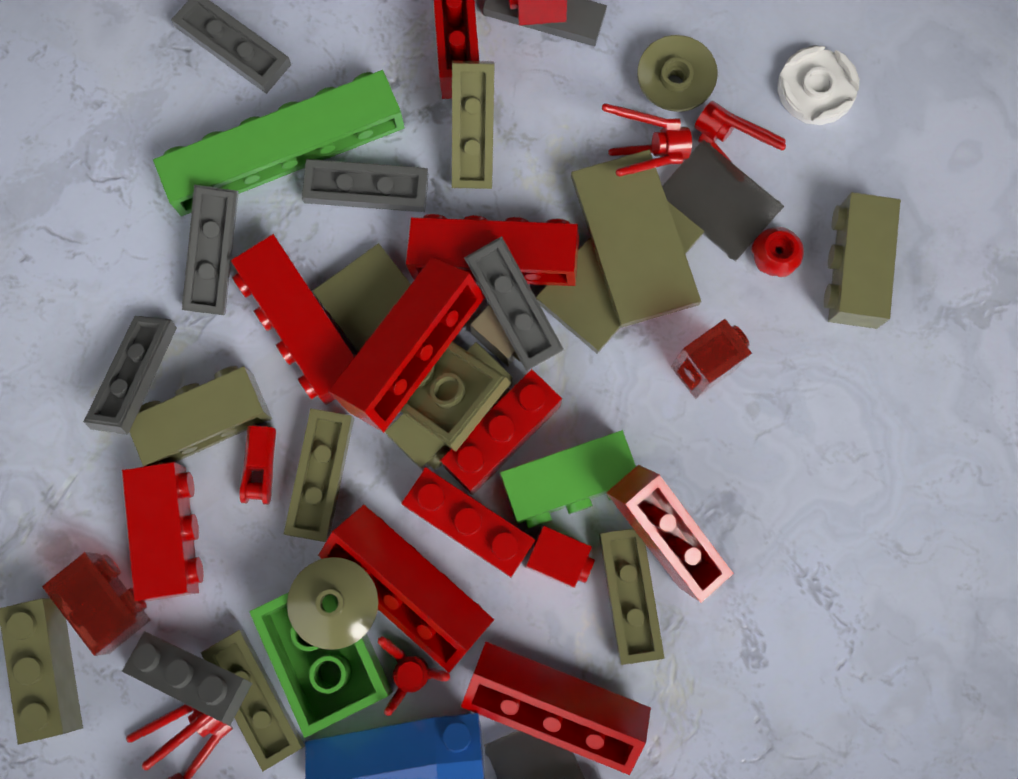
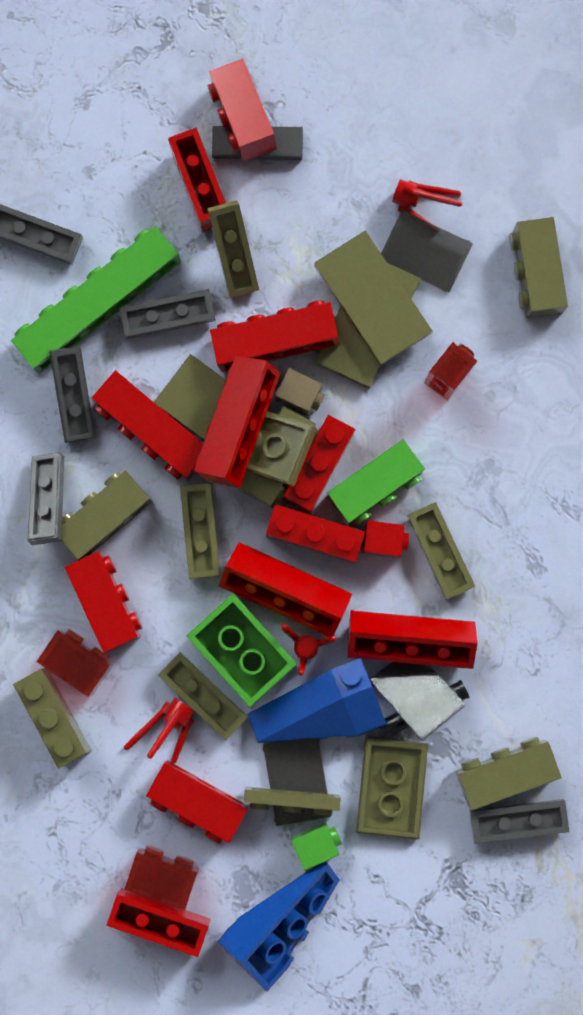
camera: 15 degrees left, 5 degrees up
(187, 678) = (155, 693): dark grey plate -> none
(258, 457) = (154, 531): red bar -> none
(355, 609) = (250, 628): olive dish -> none
(514, 303) = (302, 371): dark grey tile -> none
(670, 532) = (455, 500): brick -> none
(671, 143) = (379, 220): red plant -> none
(682, 58) = (373, 152): olive dish -> none
(771, 262) = (473, 286): red plate -> none
(818, 85) = (473, 143): white tile -> none

